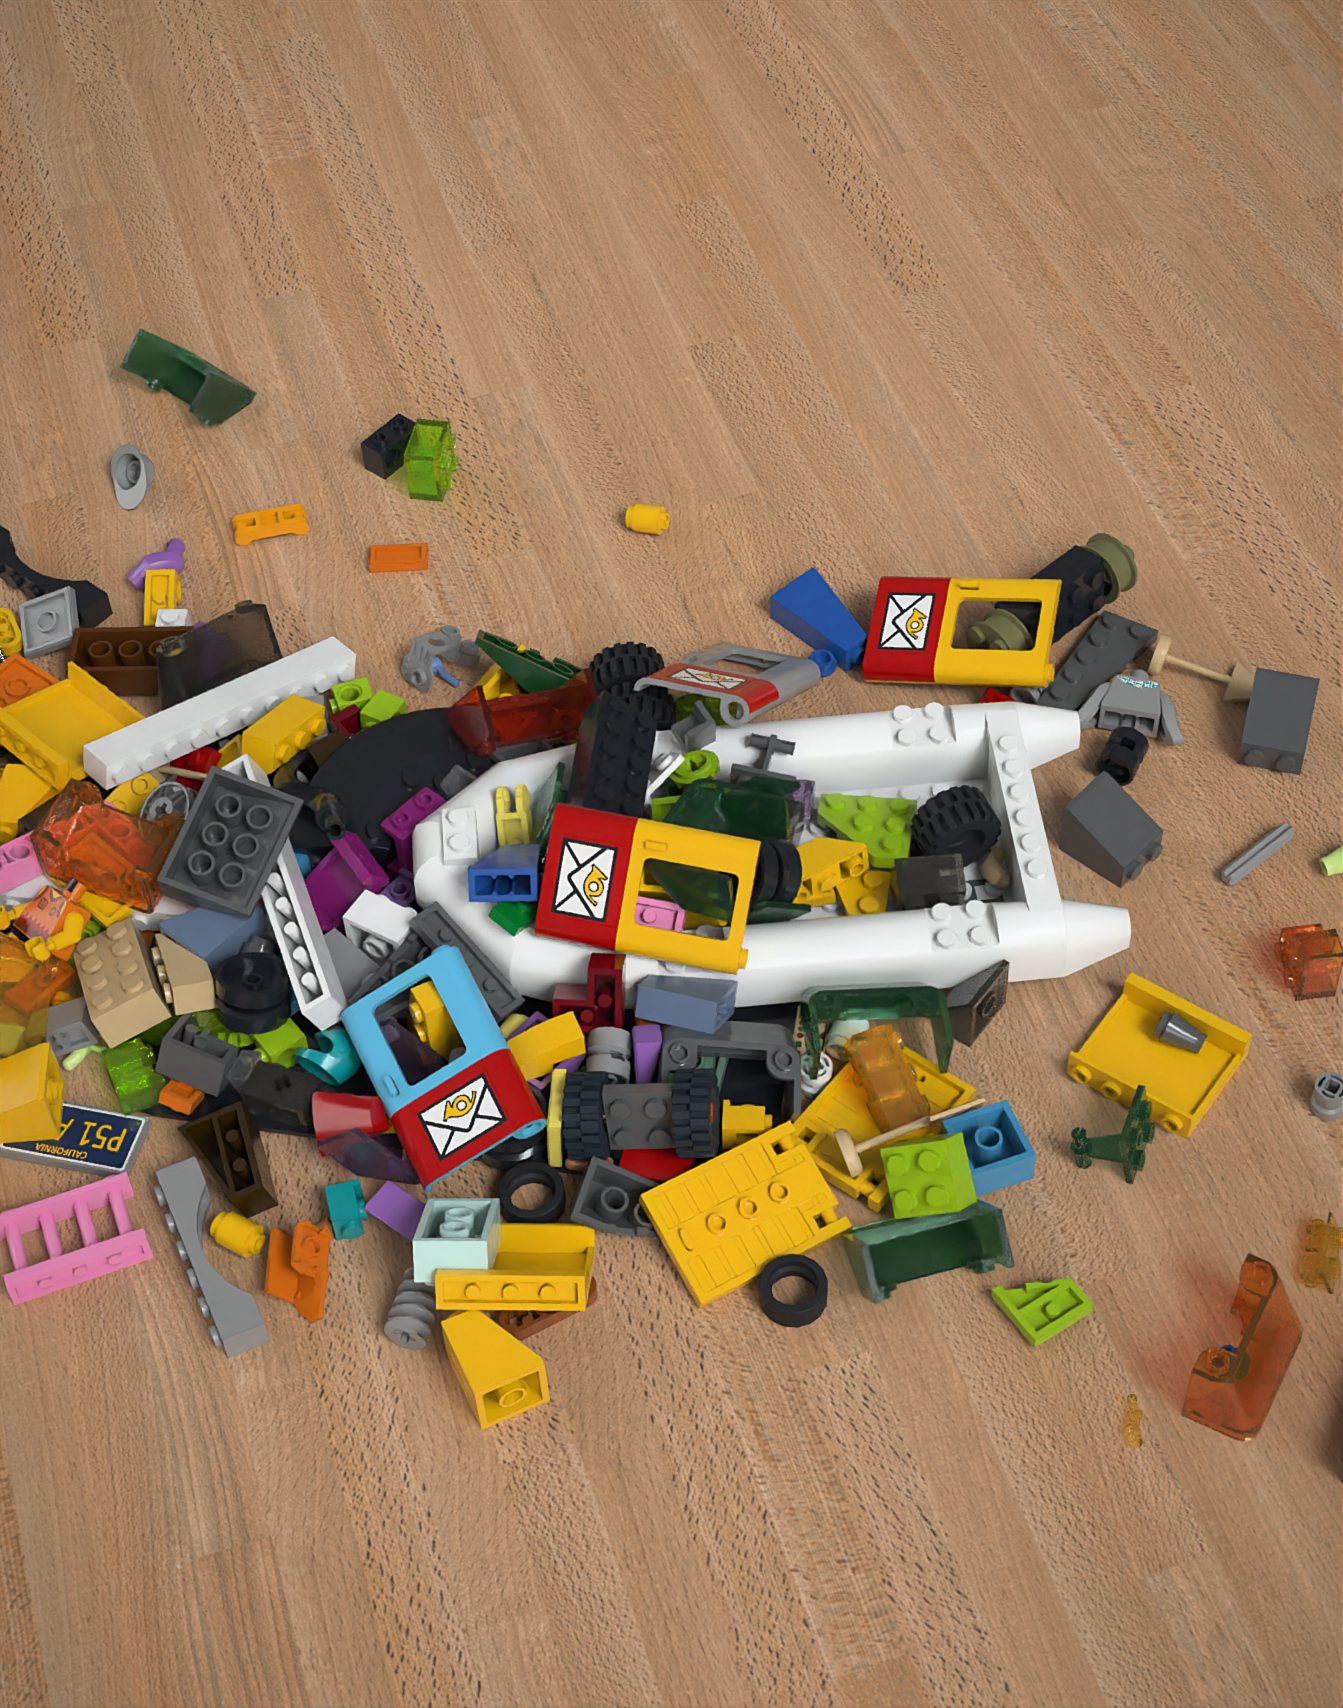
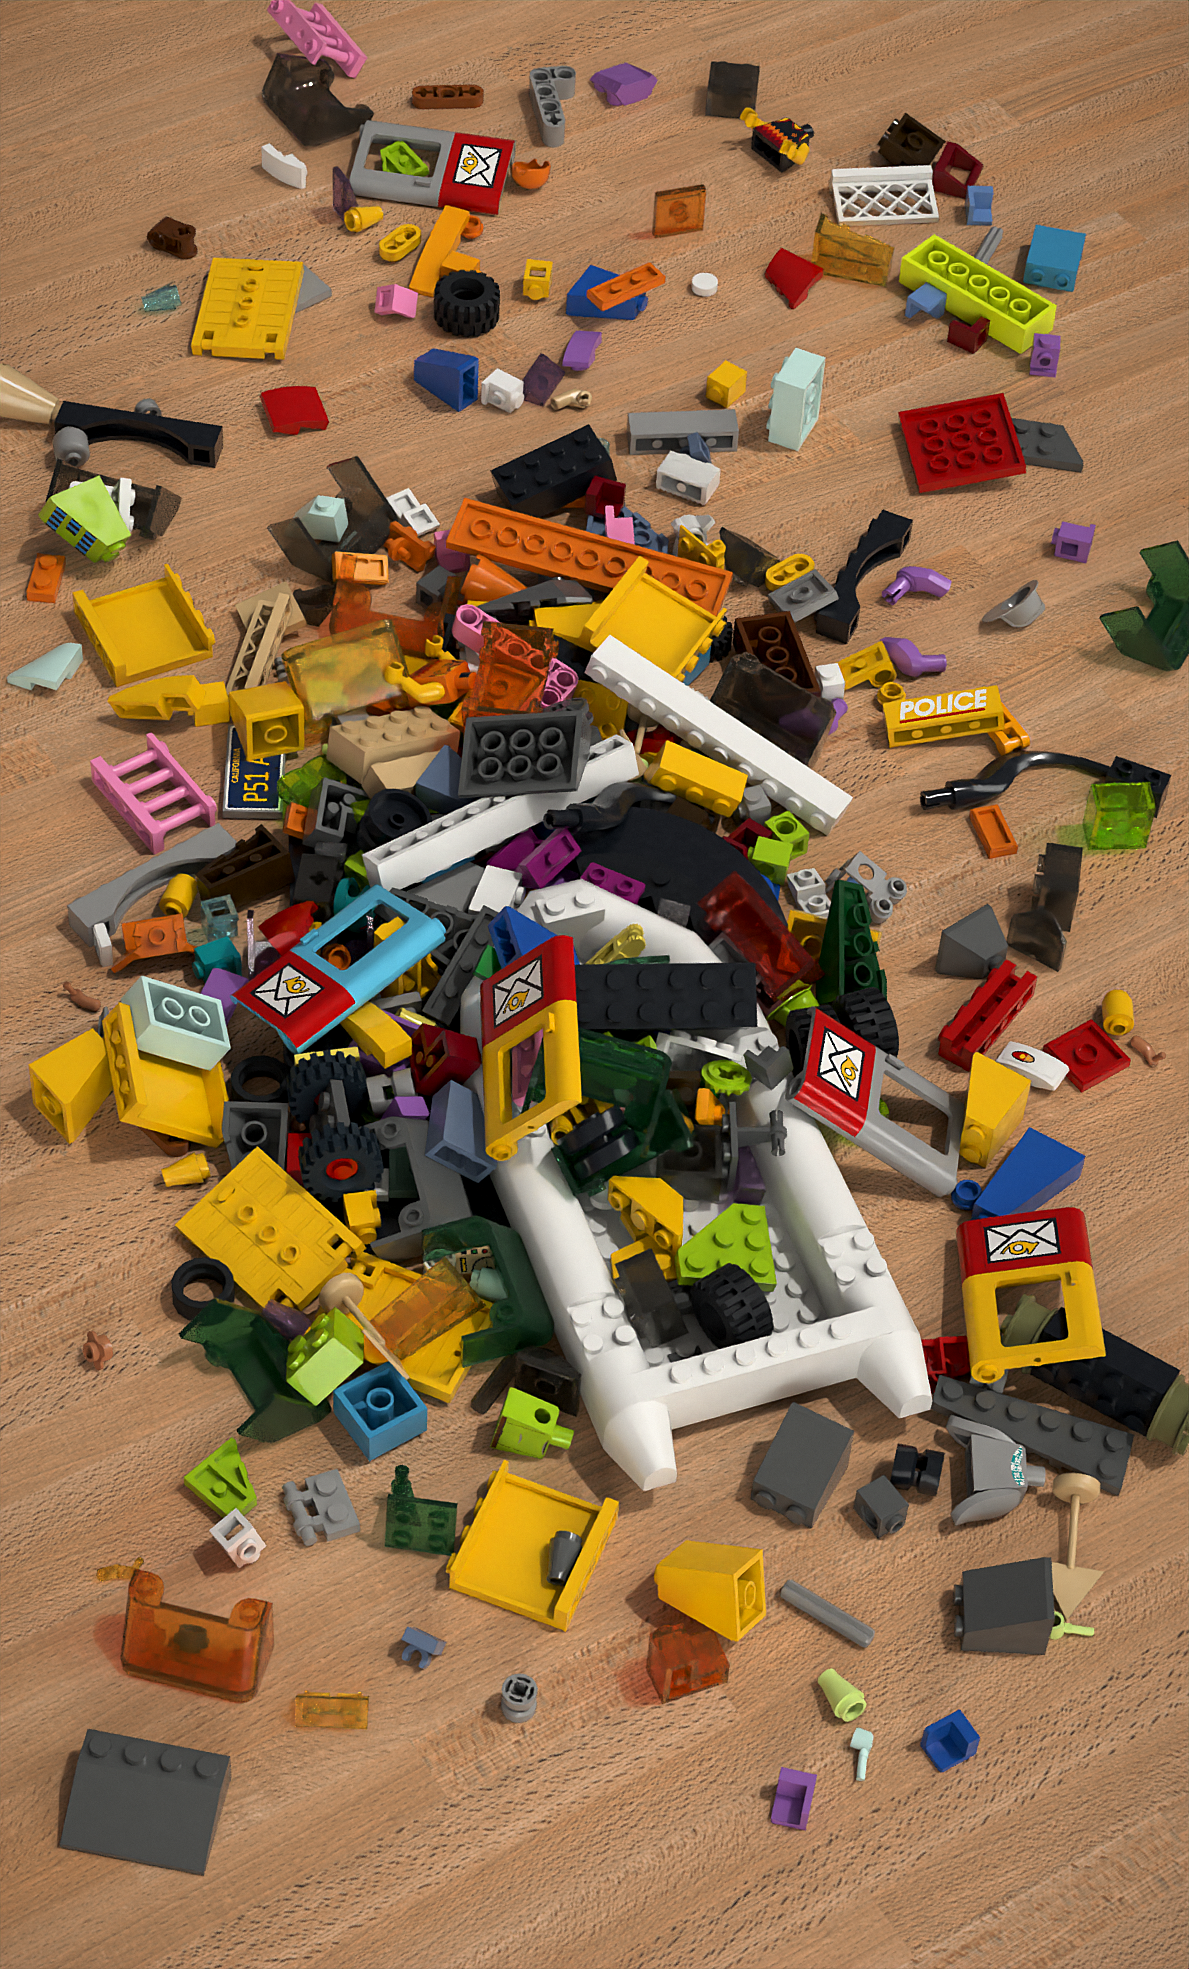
camera: 70 degrees right, 0 degrees up
(61, 539) = (914, 580): none -> medium lavender arm
(67, 421) = (1073, 541): none -> medium lavender brick
(201, 590) = (890, 692): none -> yellow plate
(253, 551) = (943, 716): none -> yellow brick
(282, 1319) = (102, 945): none -> white tile
(294, 1193) = (221, 925): none -> clear light blue brick
(337, 539) = (998, 777): none -> black animal
(347, 1358) = (81, 999): none -> nougat piece
(423, 697) = (809, 892): none -> white slope
(499, 517) = (1058, 882): none -> clear smoke brick
(546, 591) = (972, 946): none -> dark grey slope
(551, 545) = (1038, 936): none -> clear smoke slope
(623, 603) = (986, 1015): none -> red brick
(629, 1281) = (188, 1170): none -> yellow cone
(683, 553) = (1088, 1054): none -> red tile
(686, 587) = (1034, 1064): none -> white slope
(689, 513) = (1146, 1050): none -> nougat piece
(741, 615) = (992, 1108): none -> yellow slope
(851, 1402) = (97, 1349): none -> nougat plate
(862, 1211) = (285, 1319): none -> cone
(960, 1054) = (494, 1384): none -> clear smoke axle
(1032, 1018) = (529, 1426): none -> lime torso
(1079, 1220) = (331, 1503): none -> light grey plate
(1126, 1296) = (245, 1545): none -> white brick
(1155, 789) = (881, 1507): none -> dark grey brick
(1235, 915) = (715, 1585): none -> yellow slope
(1259, 1162) = (424, 1643): none -> sand blue tile

